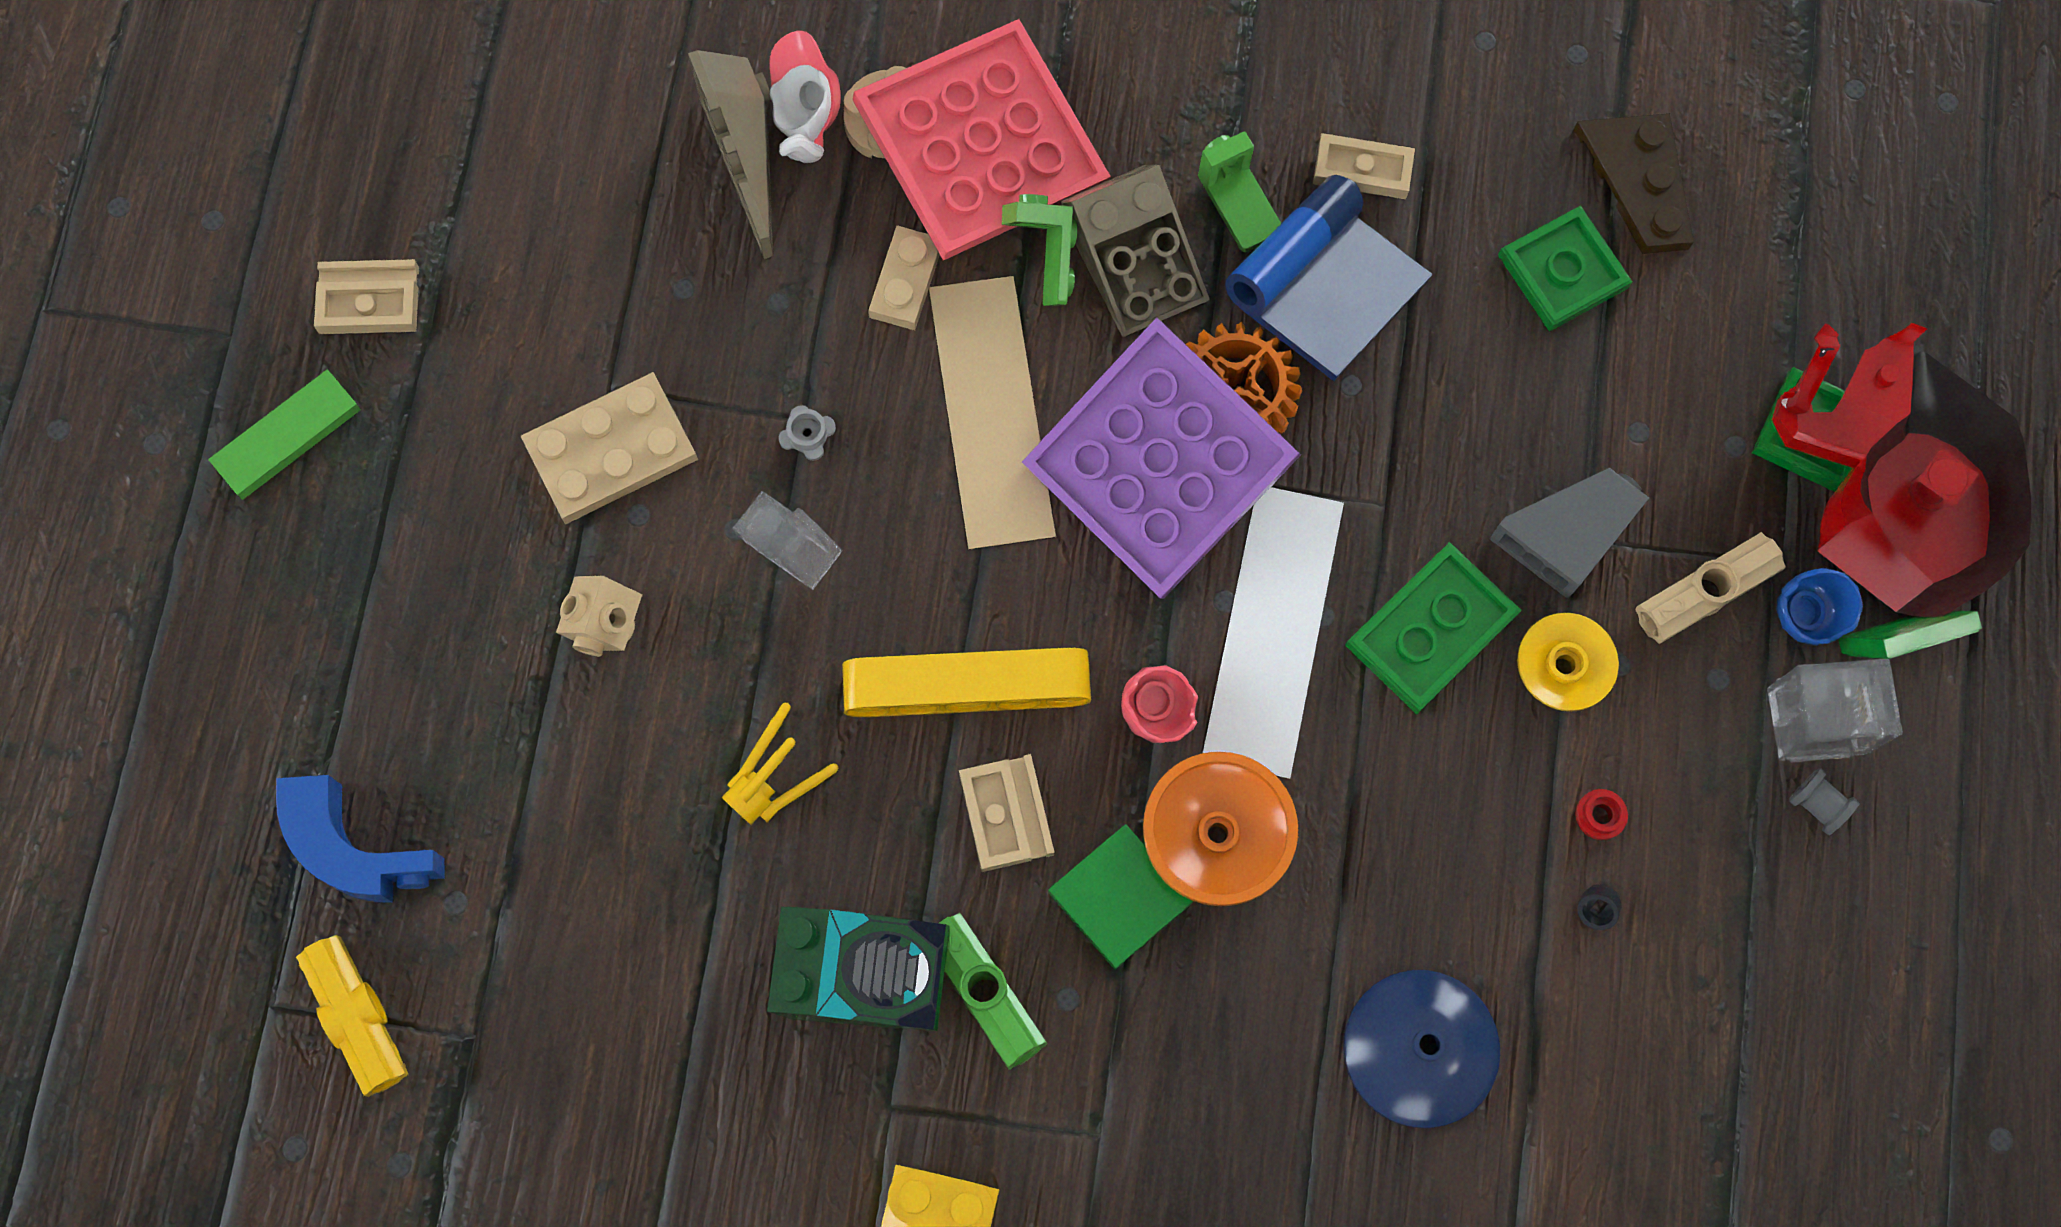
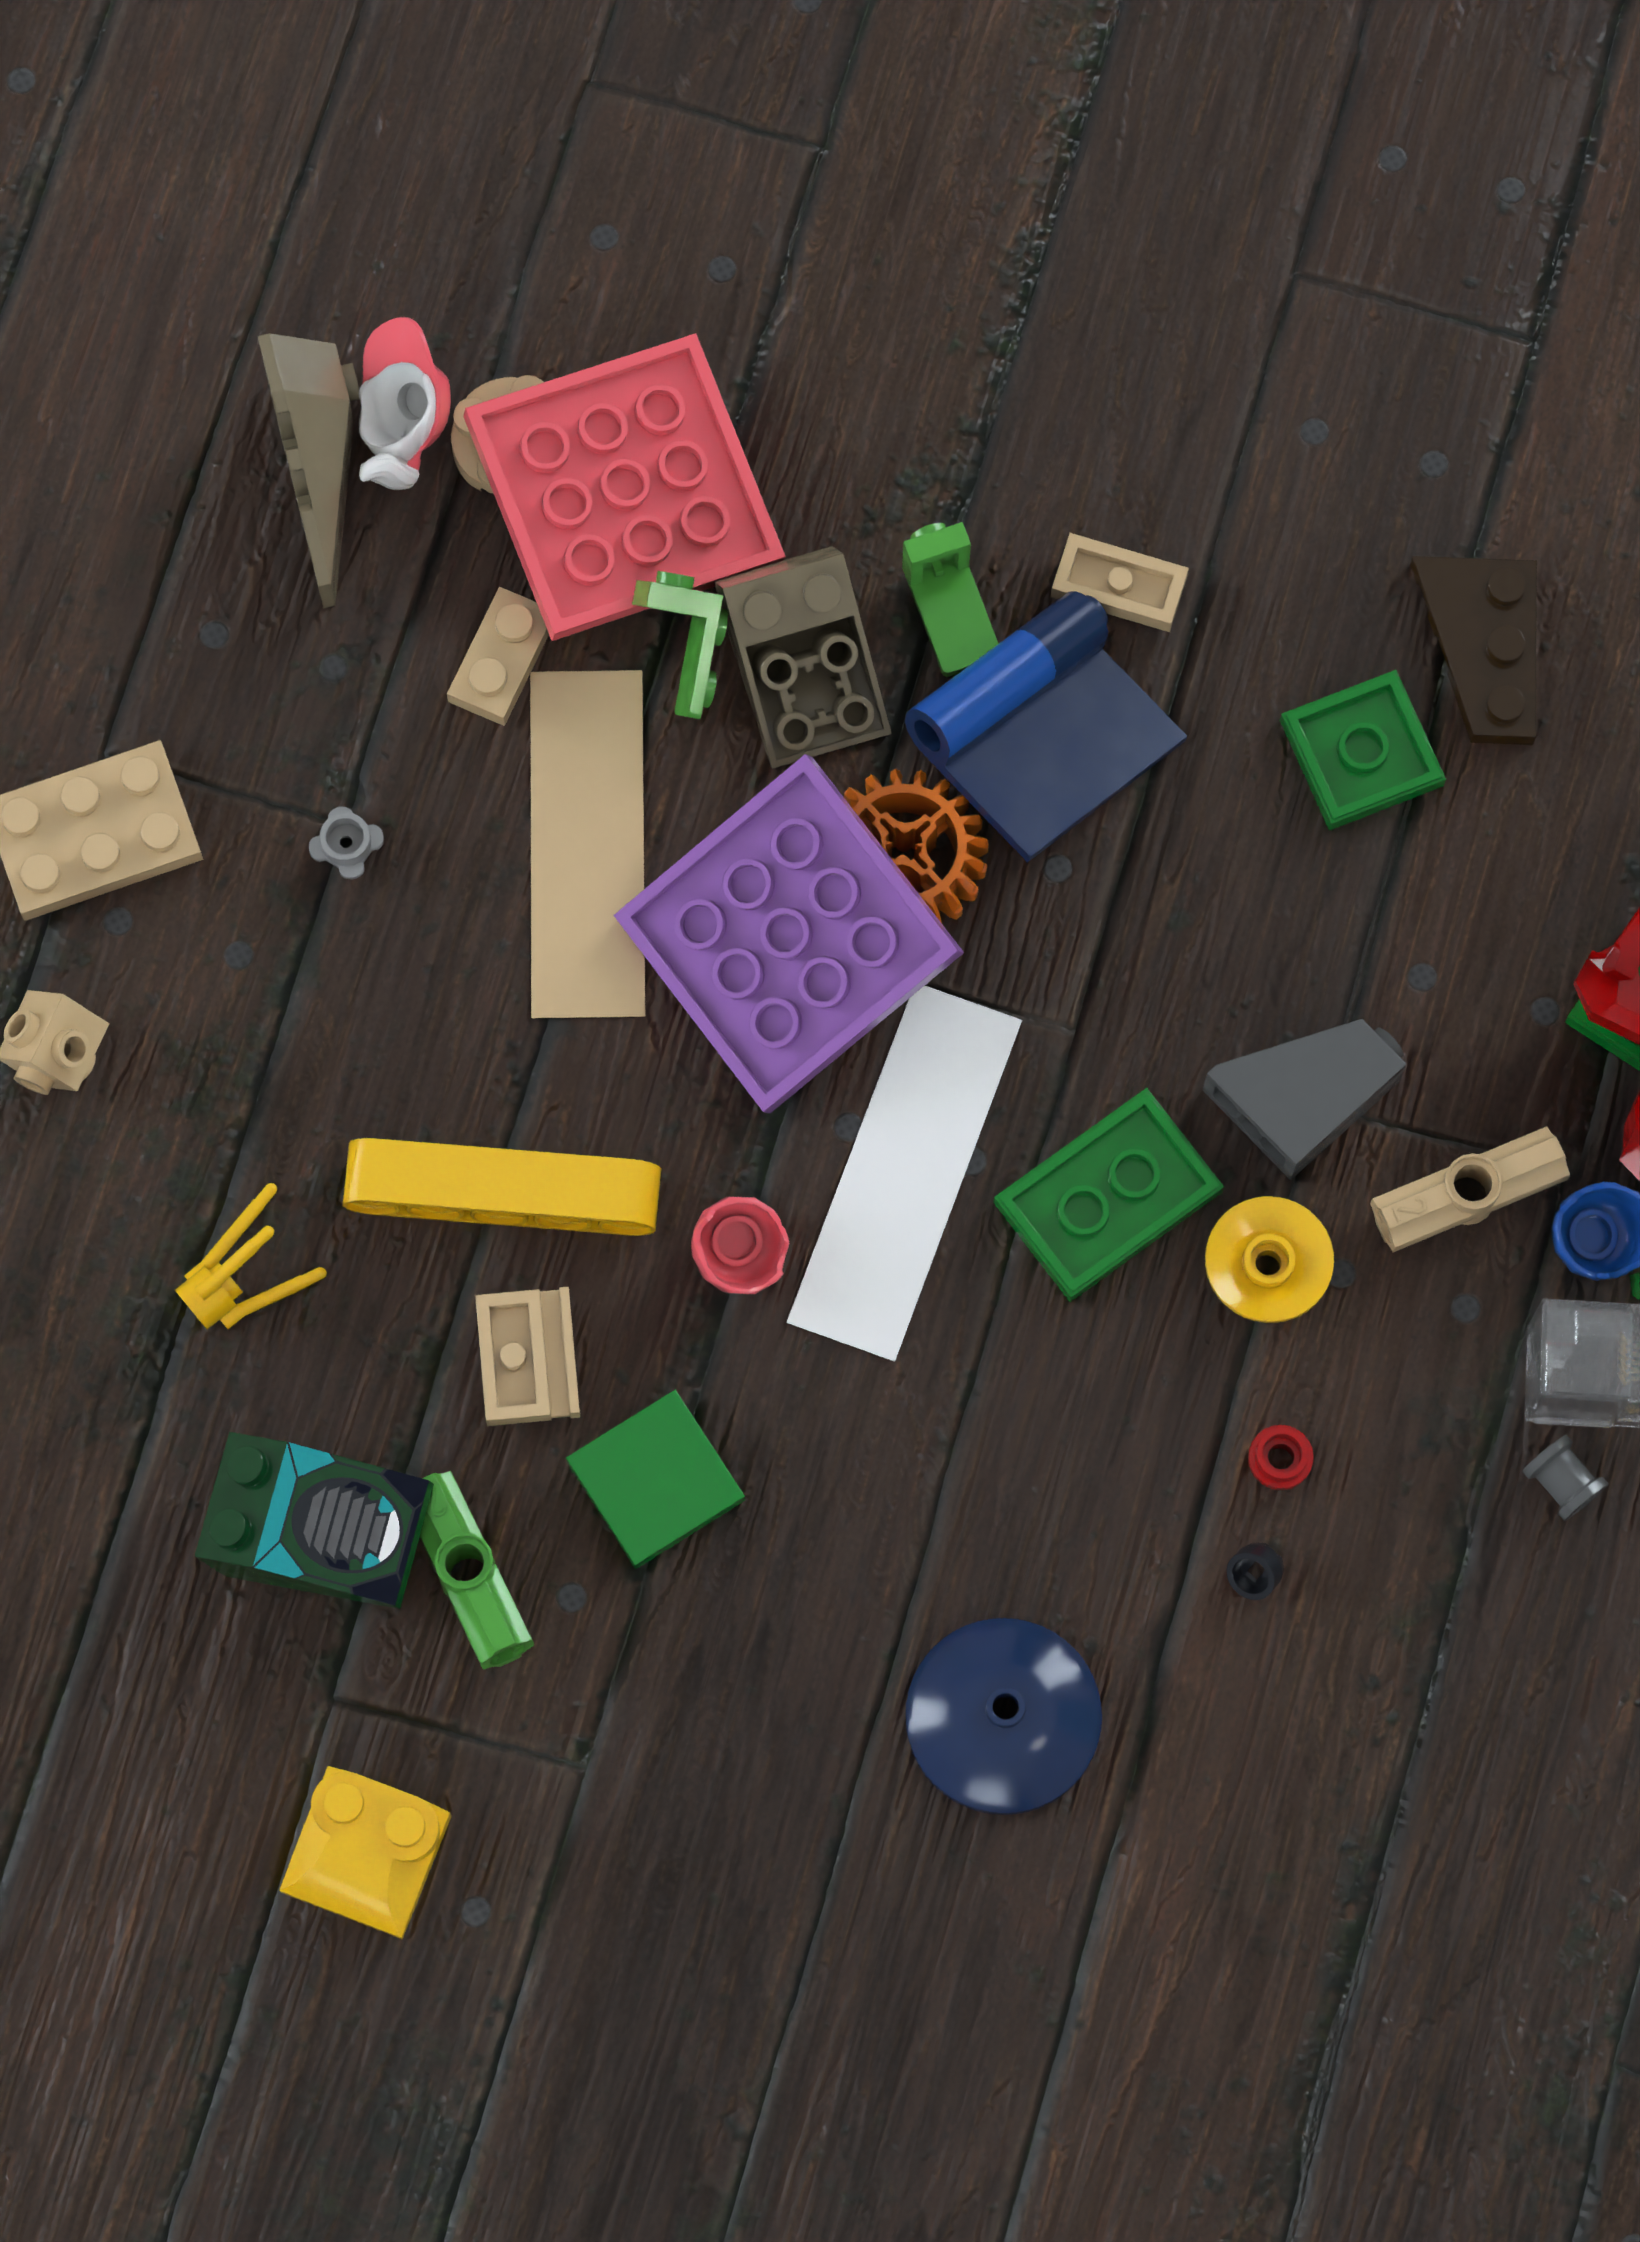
camera: 10 degrees right, 0 degrees up
(787, 539) = (302, 976): clear slope -> none
(1228, 794) = (780, 1366): orange dish -> none

